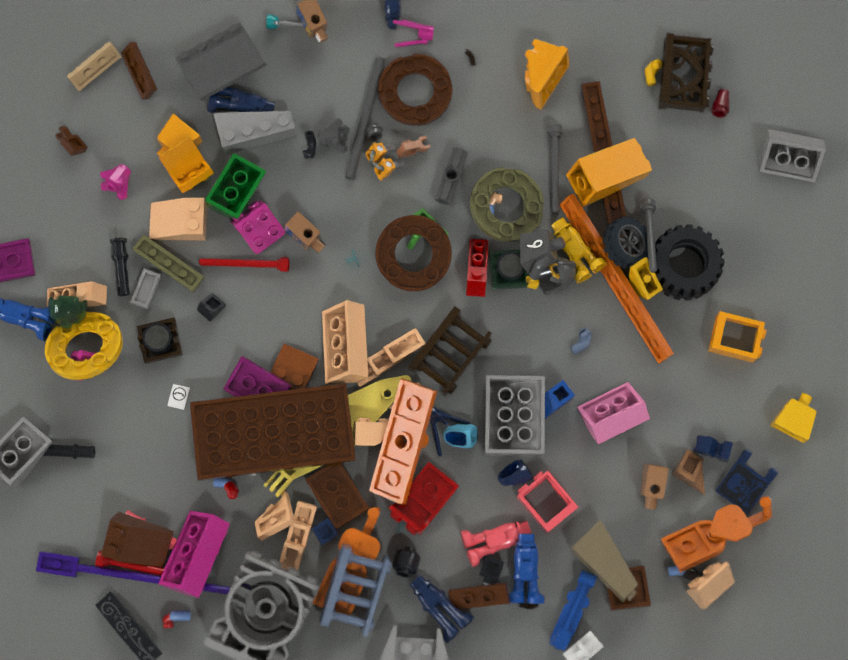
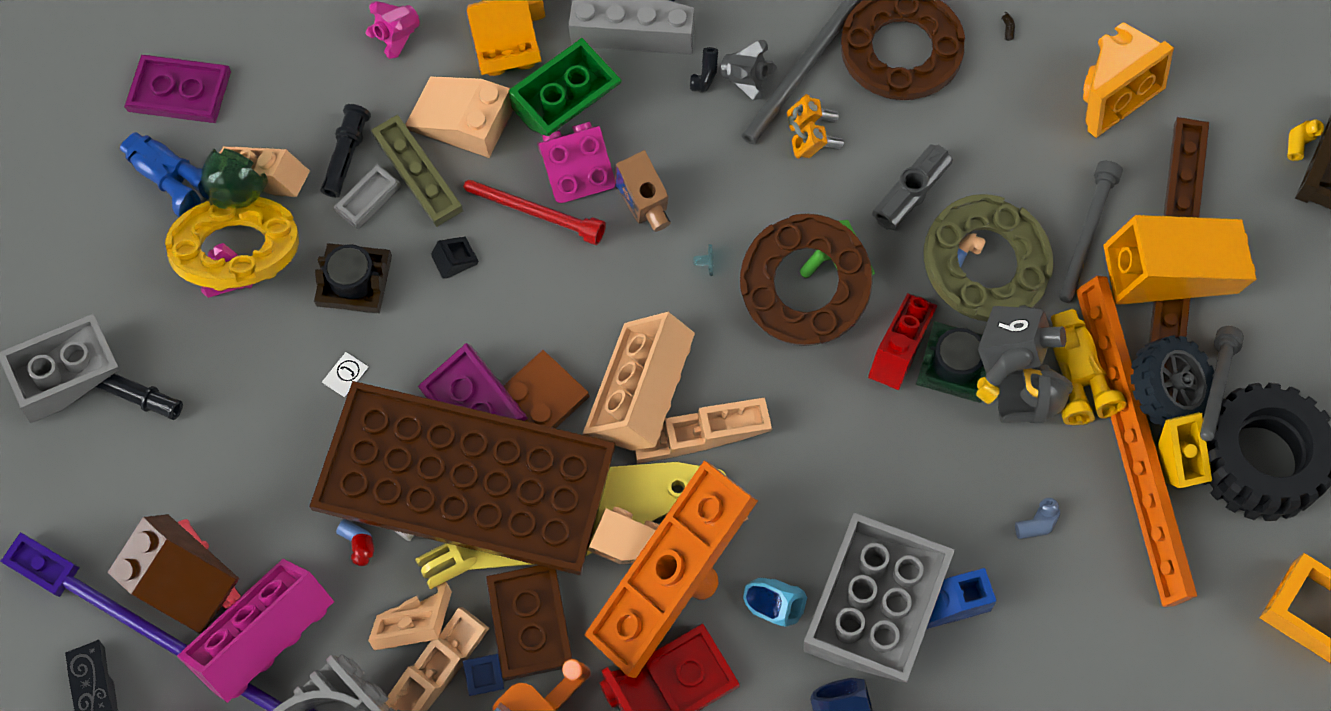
camera: 25 degrees right, 10 degrees down
(104, 561) = (110, 587): red piece -> none
(374, 132) = (813, 84): dark grey plate -> none
(410, 147) = (862, 124): nougat plate -> none
(431, 349) = (805, 423): dark brown fence -> none
(436, 416) = (743, 555): dark blue plant -> none
(613, 412) = (1055, 661): bright pink slope -> none

